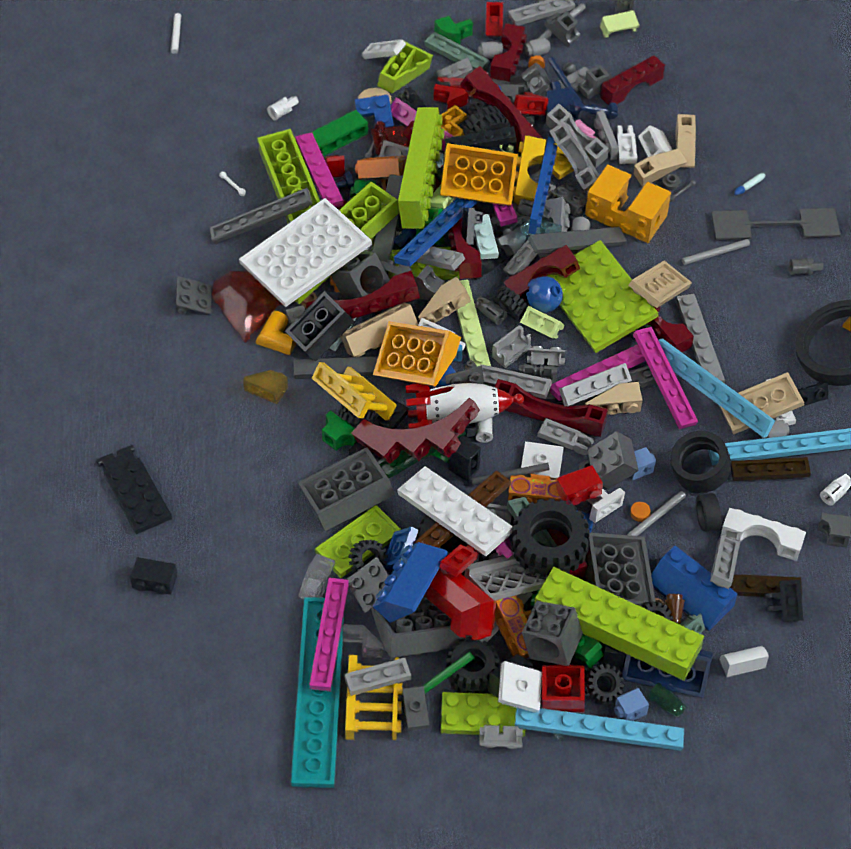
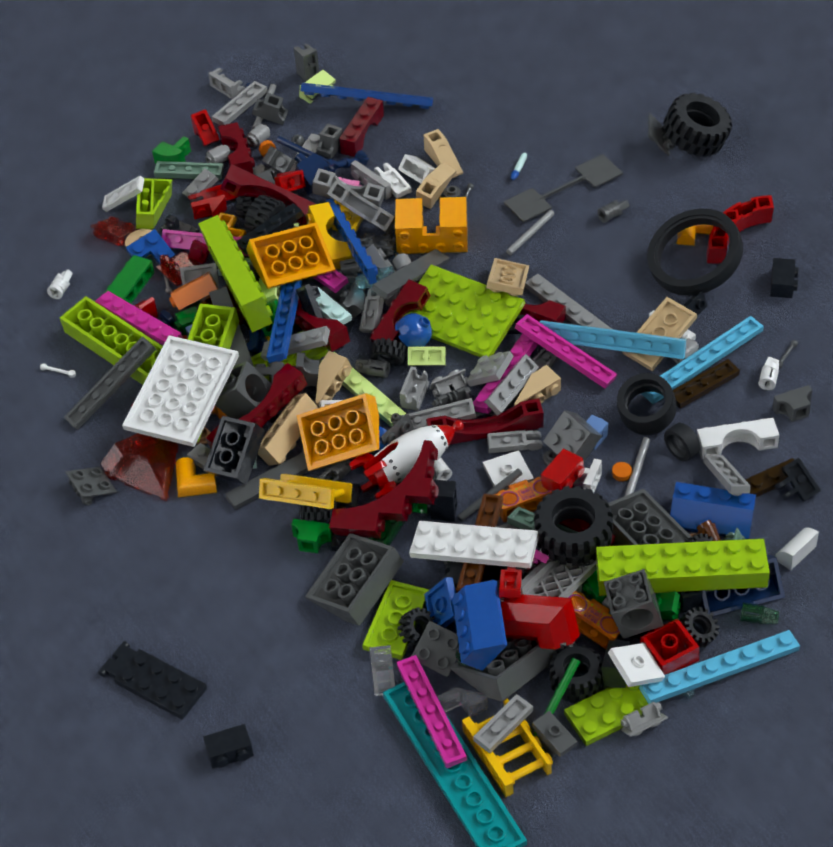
camera: 25 degrees left, 5 degrees down
(267, 385) = (216, 526): clear yellow slope -> none
(357, 78) = (113, 230): none -> clear red hinge
(398, 387) = (337, 471): none -> dark grey hinge
(587, 360) = (489, 368): none -> light grey plate
(631, 705) = (733, 634): medium blue brick -> none
(651, 49) = (360, 94): none -> blue plate

